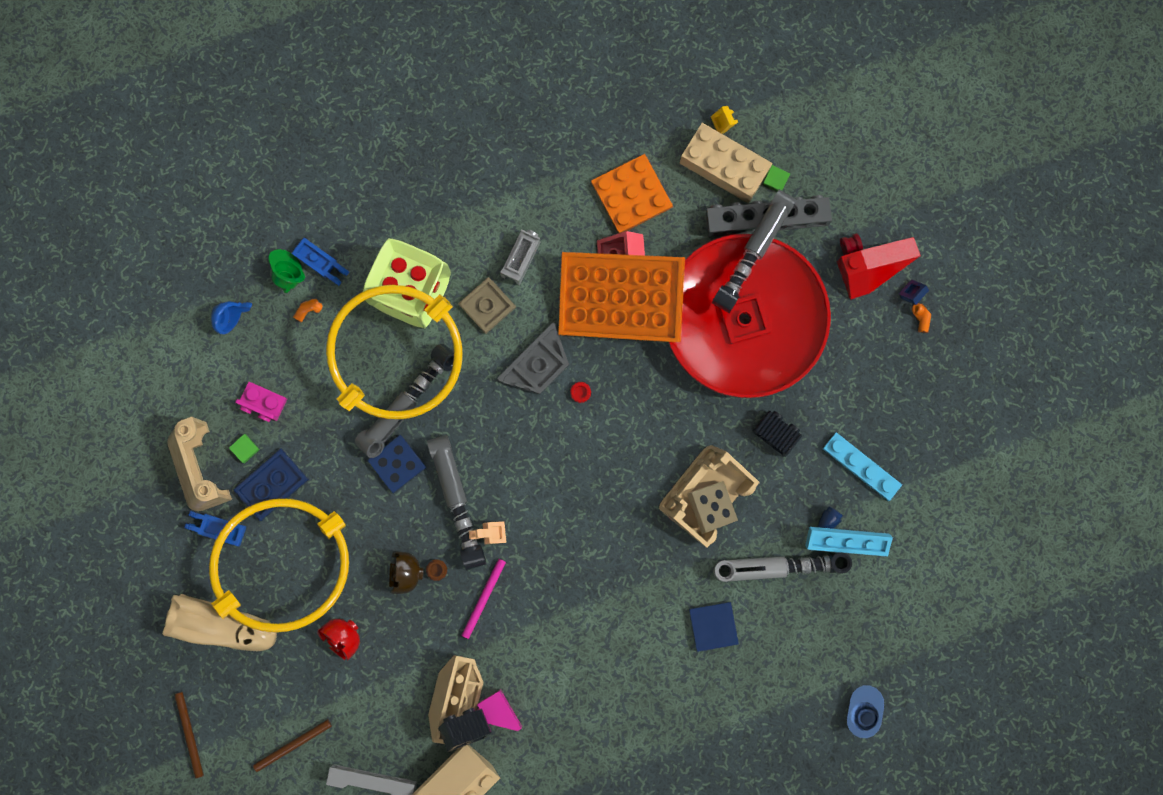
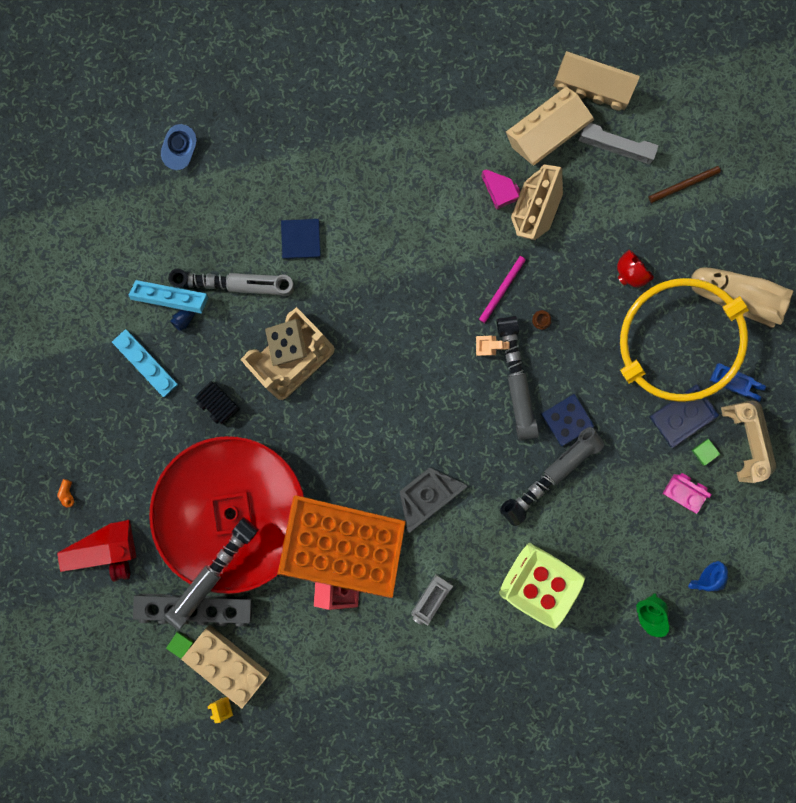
camera: 170 degrees left, 5 degrees up
(189, 736) = (774, 205): reddish brown bar -> none
(307, 306) = (636, 578): orange arm -> none
(318, 260) = (622, 621): blue hinge -> none
(404, 573) = (571, 319): dark brown cylinder -> none
(436, 309) = (517, 552): yellow piece -> none
(464, 729) = (533, 174): black brick -> none
(487, 305) = (468, 557): dark tan tile -> none
(580, 392) = (391, 464): red tile -> none
(631, 194) = (318, 648): orange plate -> none
(913, 292) = (69, 518): dark blue plate -> none

